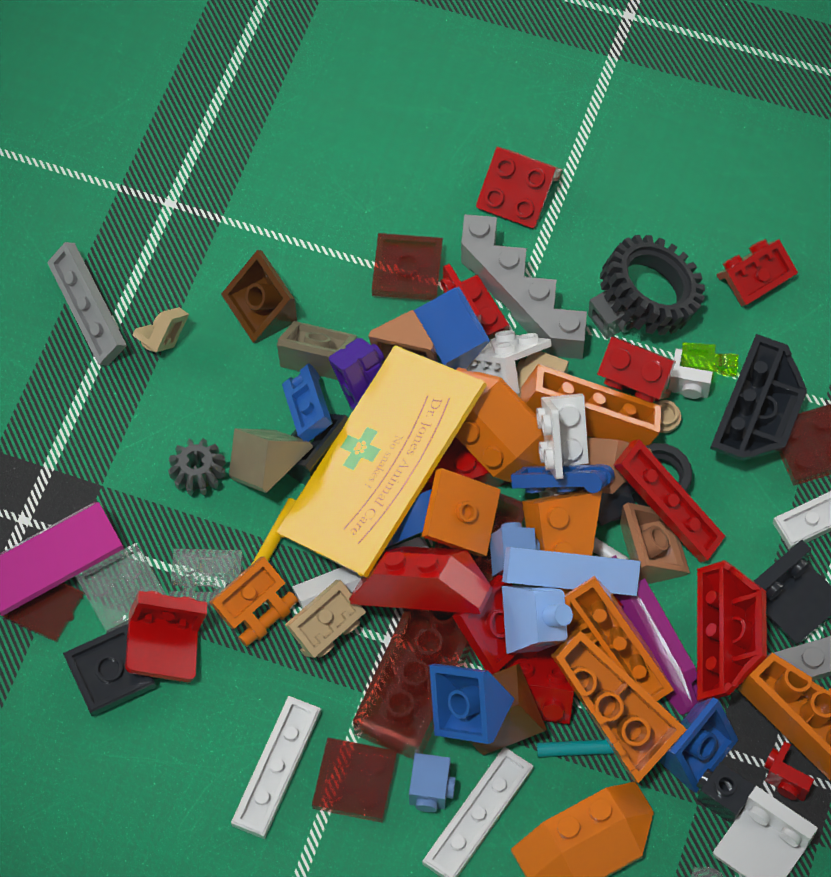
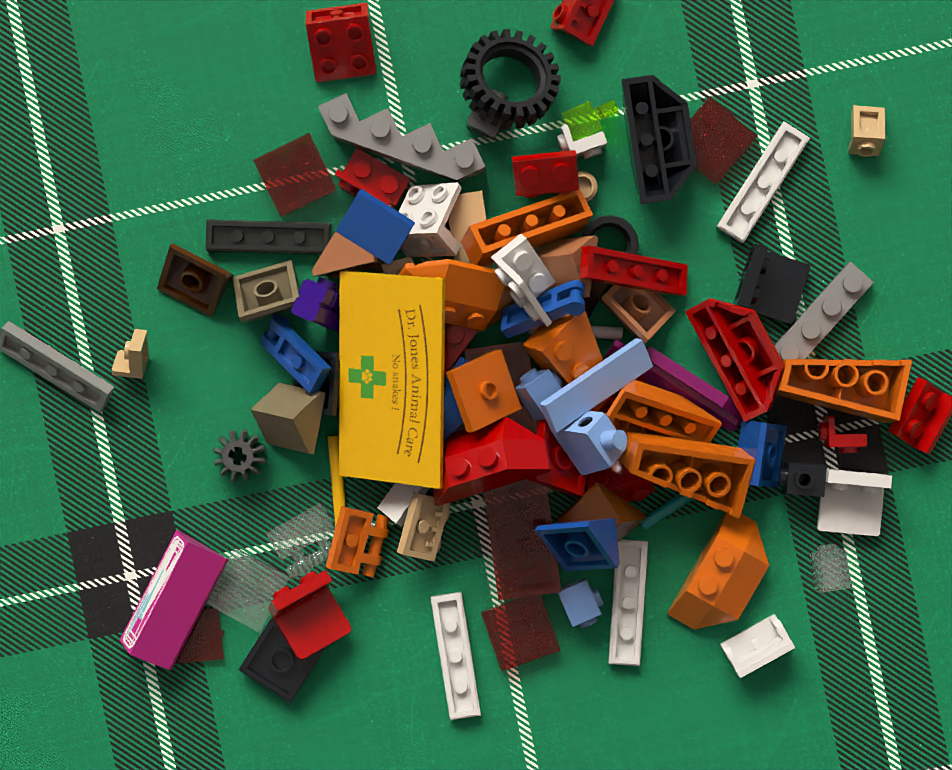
camera: 30 degrees left, 25 degrees up
(338, 299) = (267, 236): none -> pearl dark grey tile

